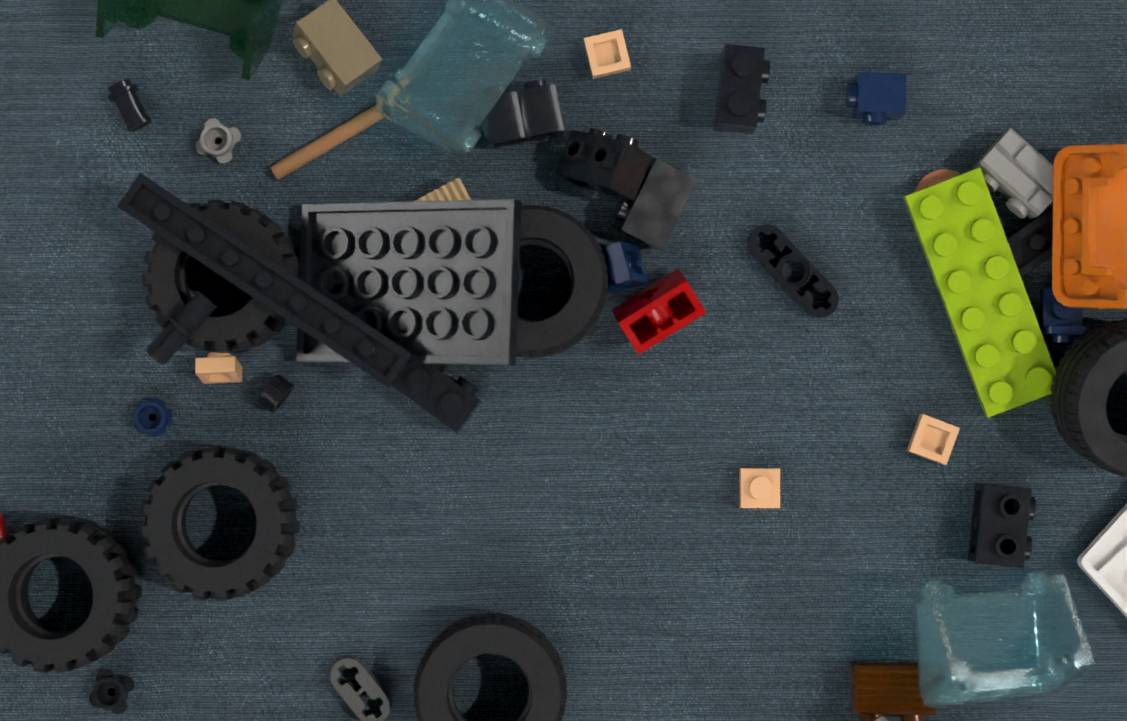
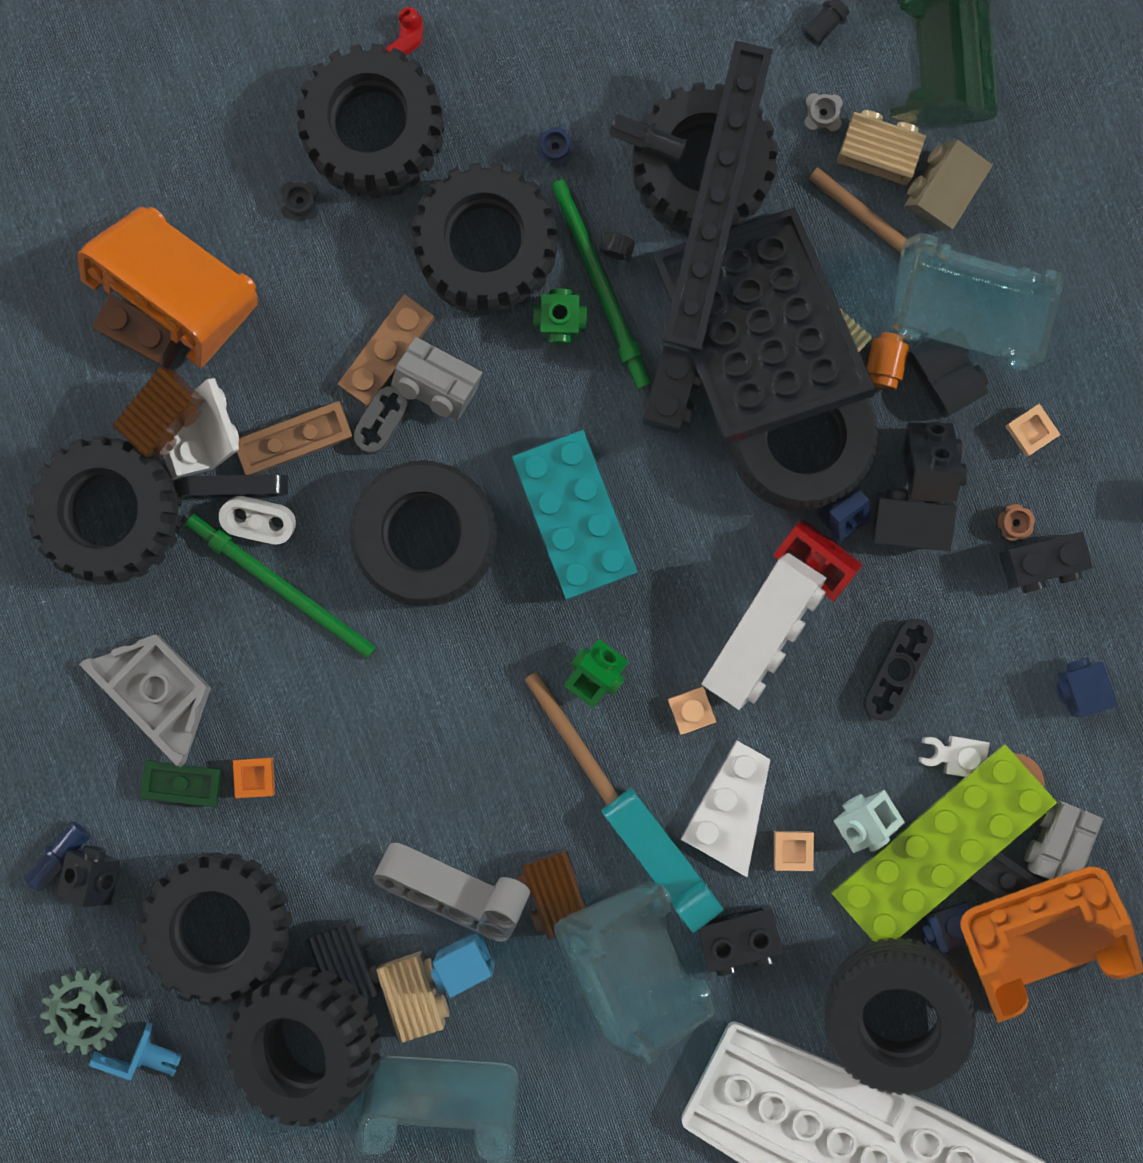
camera: 70 degrees right, 0 degrees up
(218, 368) = (620, 188): light nougat plate -> none
(274, 97) = (881, 147): none -> tan brick
(293, 659) = (385, 349): none -> medium nougat plate
(339, 480) = (555, 330): none -> green brick
(341, 622) = (436, 379): none -> light grey brick
(384, 419) = (629, 350): none -> green bar
(487, 170) = (887, 360): none -> orange brick
(526, 534) = (574, 515): none -> teal brick
(690, 570) = (596, 673): none -> green brick
(698, 95) = (1025, 518): none -> nougat plate
(709, 390) = (764, 631): none -> white brick
(744, 616) = (571, 738): none -> medium nougat bar
(870, 486) = (731, 809): none -> white wing
(892, 572) = (662, 859): none -> teal beam
(899, 243) = (959, 756): none -> white plate
(931, 356) = (868, 821): none -> light aqua brick

